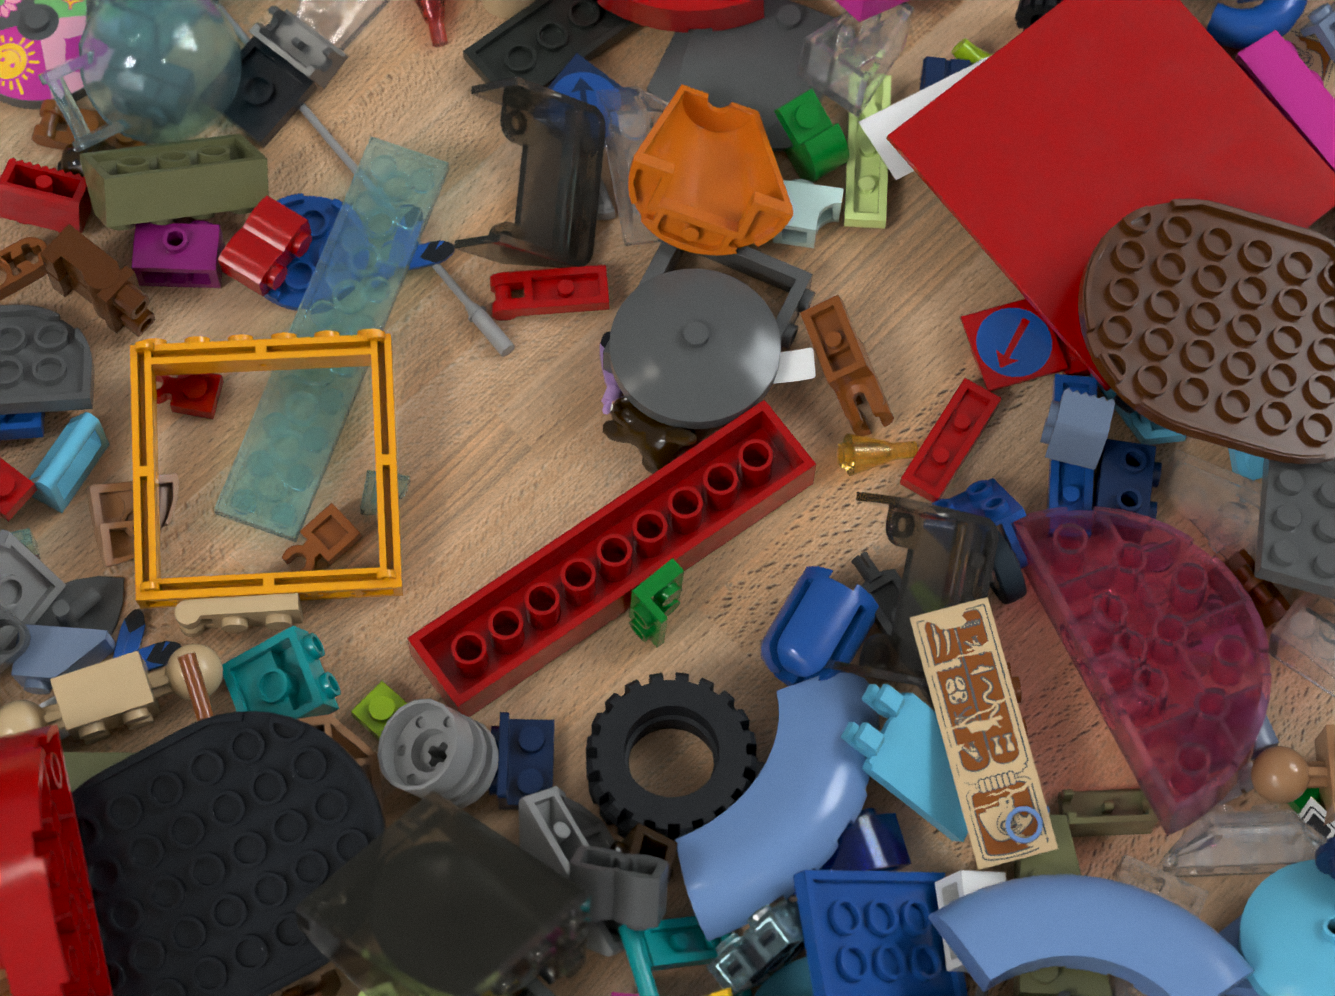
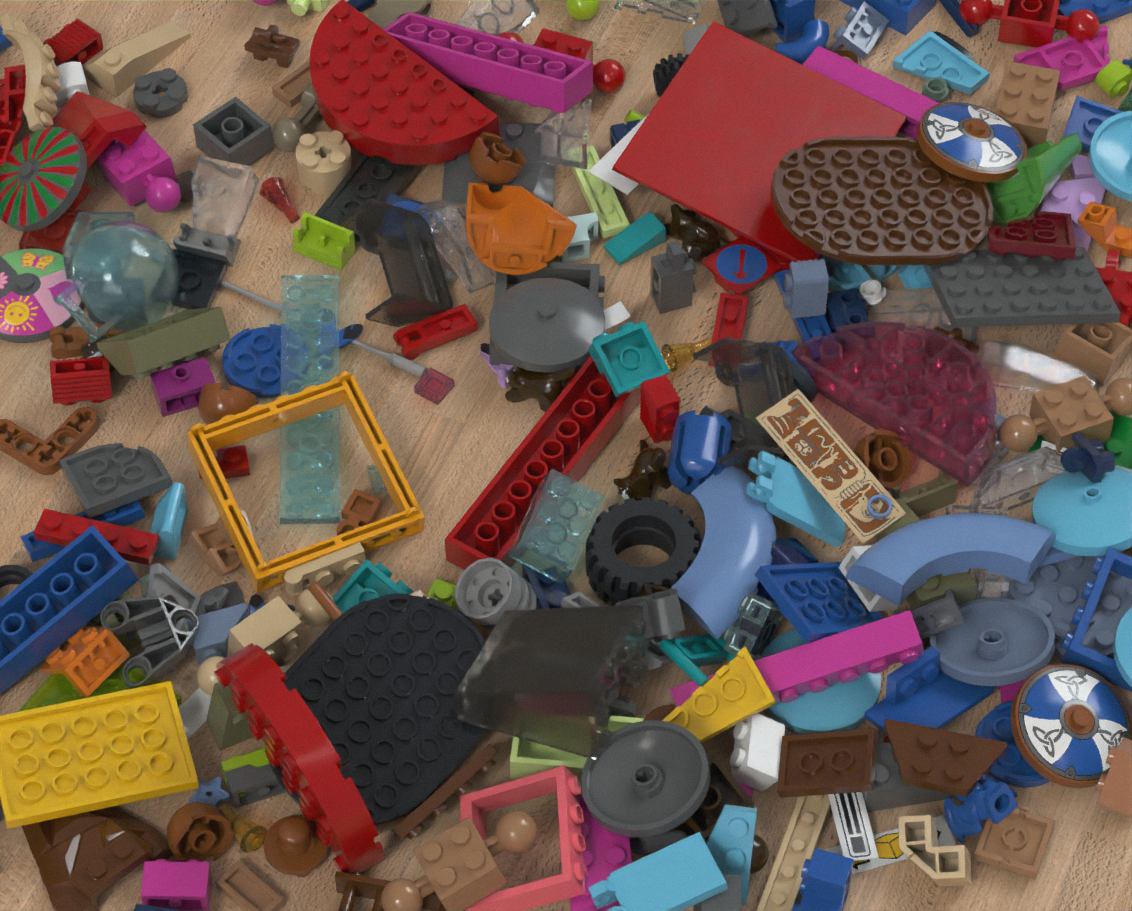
camera: 20 degrees left, 15 degrees down
(82, 266) = (141, 414): reddish brown hips -> none
(212, 312) = (219, 402): none -> dark orange cylinder
(265, 246) = (242, 360): red brick -> none
(449, 92) = (324, 241): none -> lime hinge
(513, 375) = (434, 386): none -> clear pink tile
(563, 680) = (556, 526): none -> clear light blue brick
(655, 601) = (589, 465): green bracket -> none
(736, 59) = (494, 161): none -> dark orange cylinder
(736, 628) = (645, 475): none -> dark brown animal
(775, 453) = (628, 357): none -> teal plate
(794, 537) = (659, 408): none -> red brick
(816, 142) = (568, 191): green brick -> none
(846, 363) = (644, 305): dark orange plate -> none
(887, 245) = (636, 239): none -> teal slope
(903, 337) = (672, 279): none -> dark grey hinge
(973, 275) = (697, 237): none -> dark brown animal
(1068, 740) = (885, 457): none -> dark orange cylinder
(1177, 448) = (872, 292): none -> white plate

